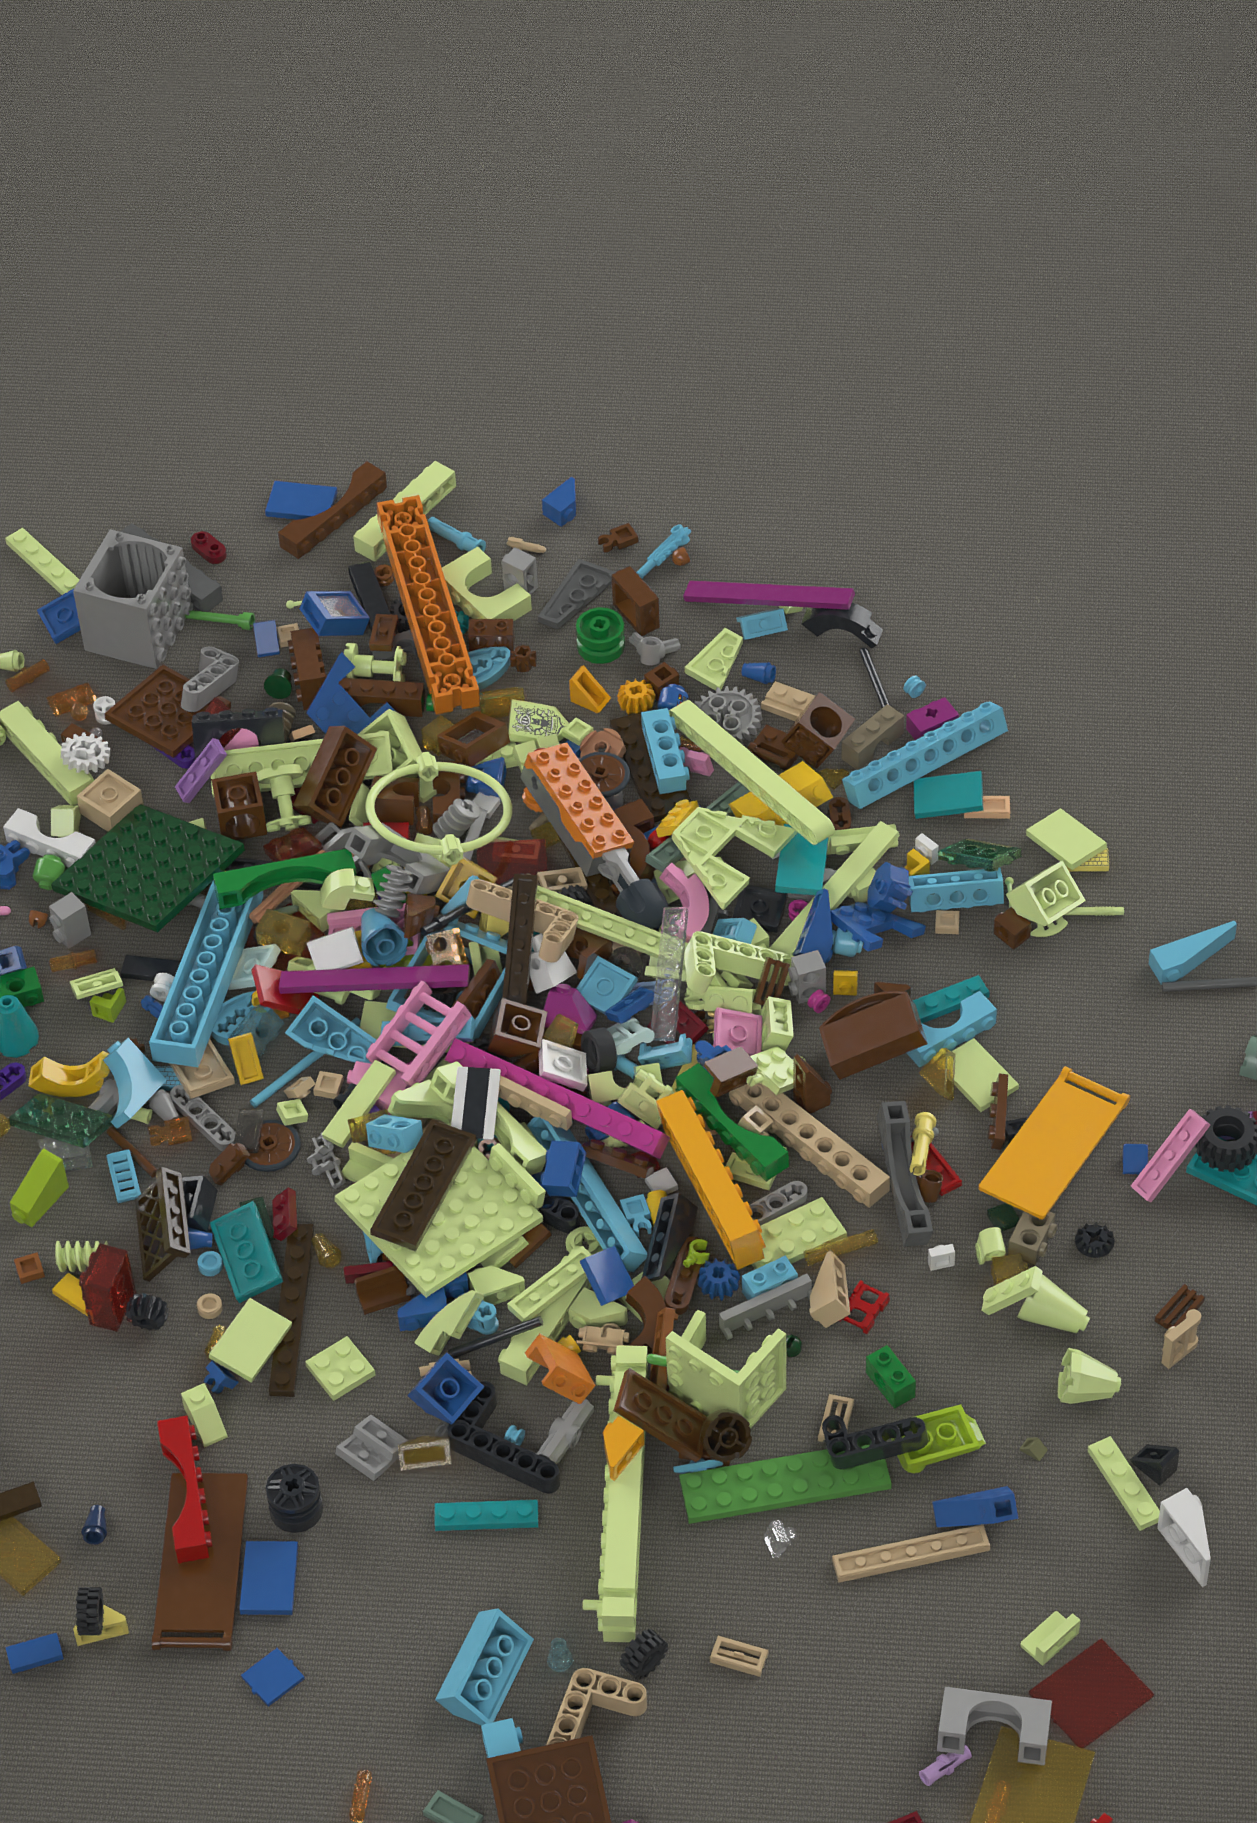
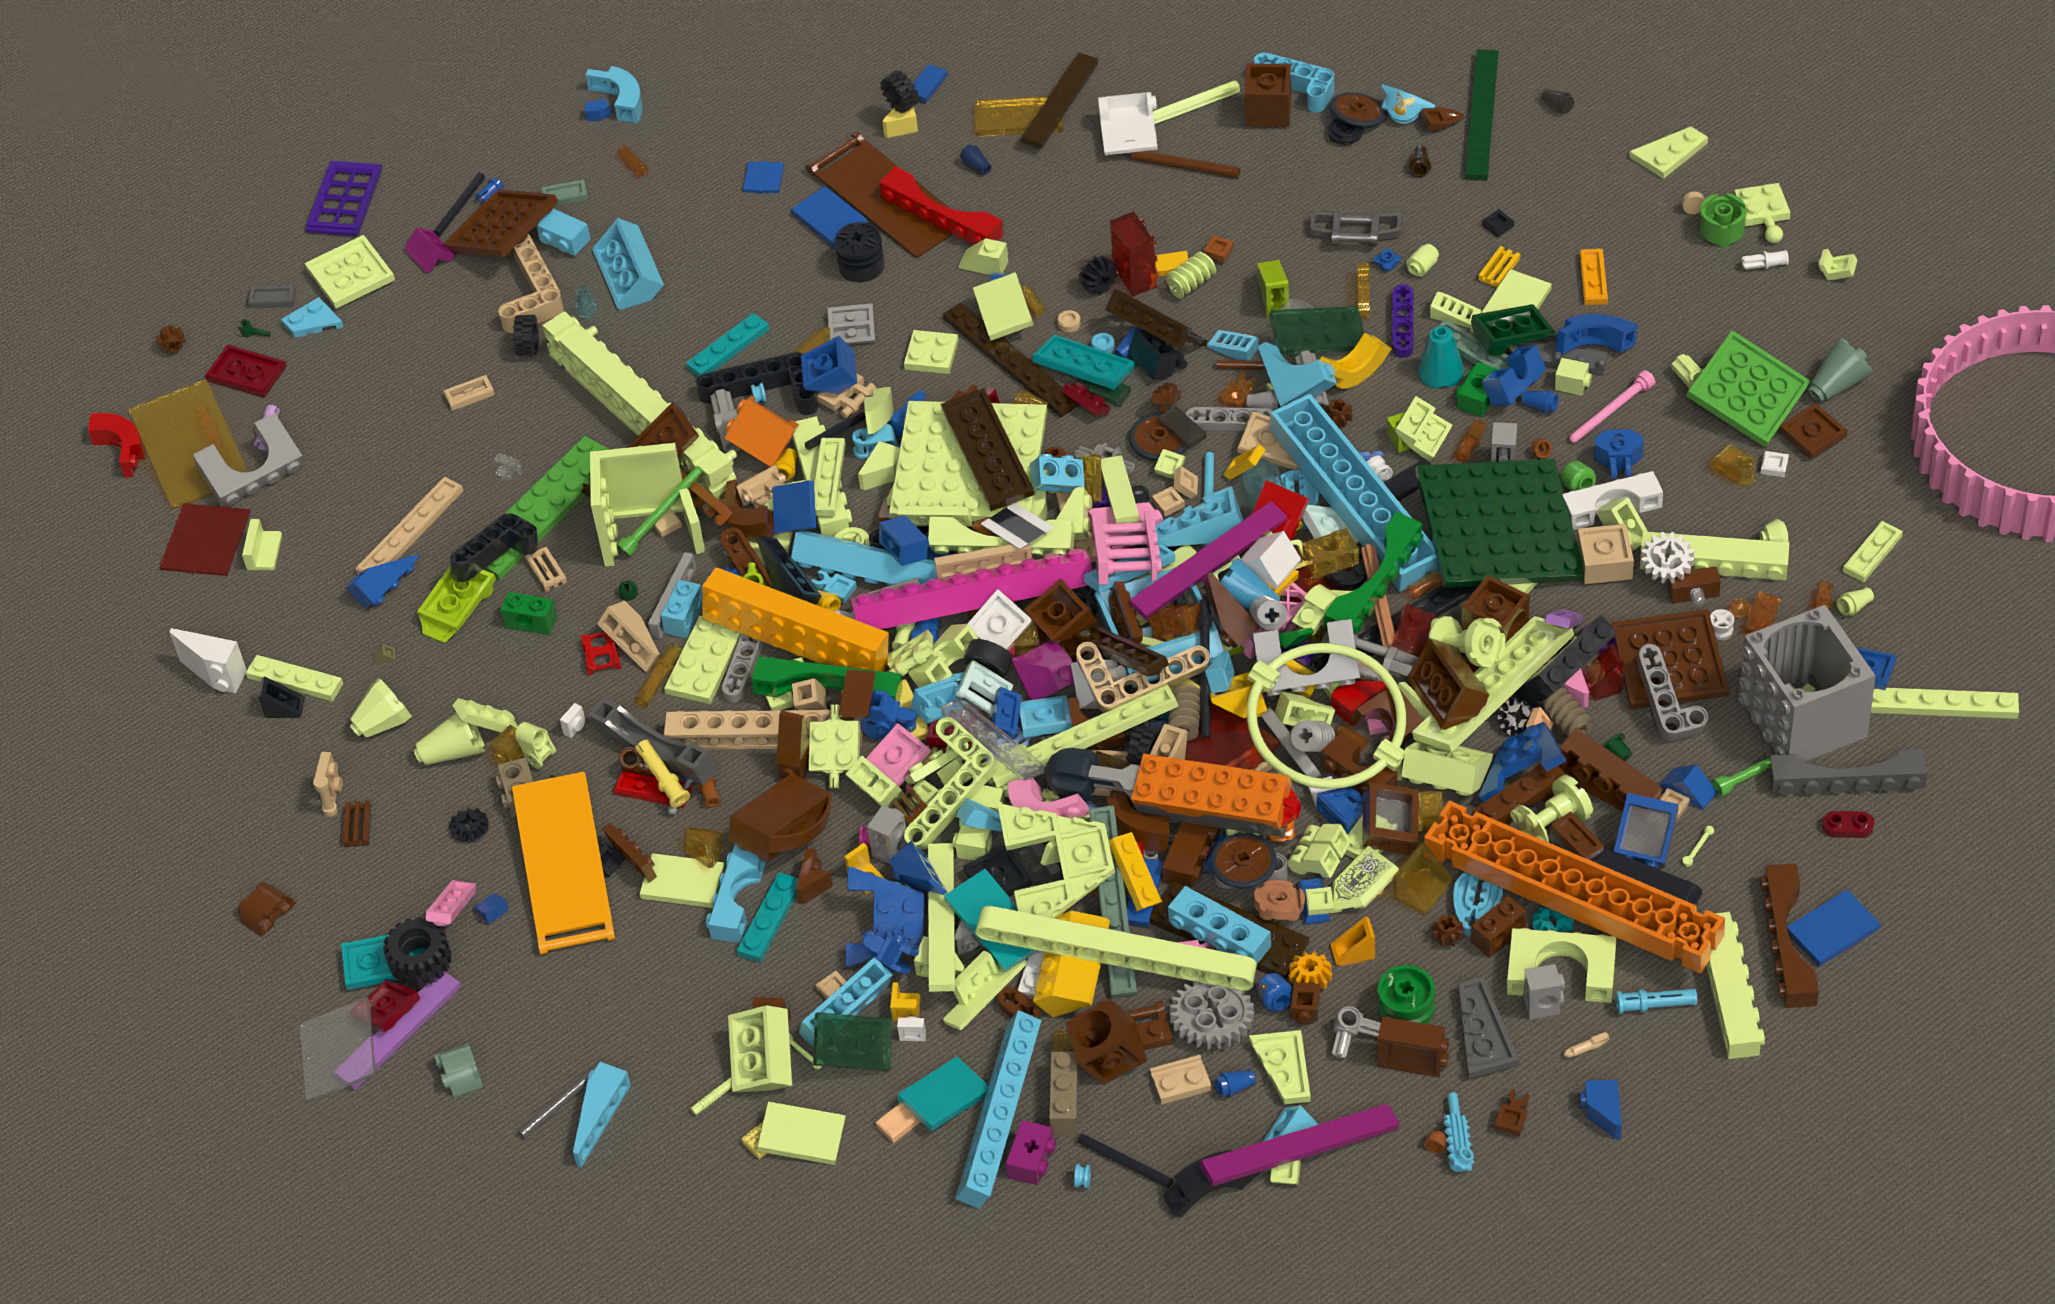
camera: 140 degrees right, 0 degrees up
(621, 1445) = (653, 394): light orange slope -> none

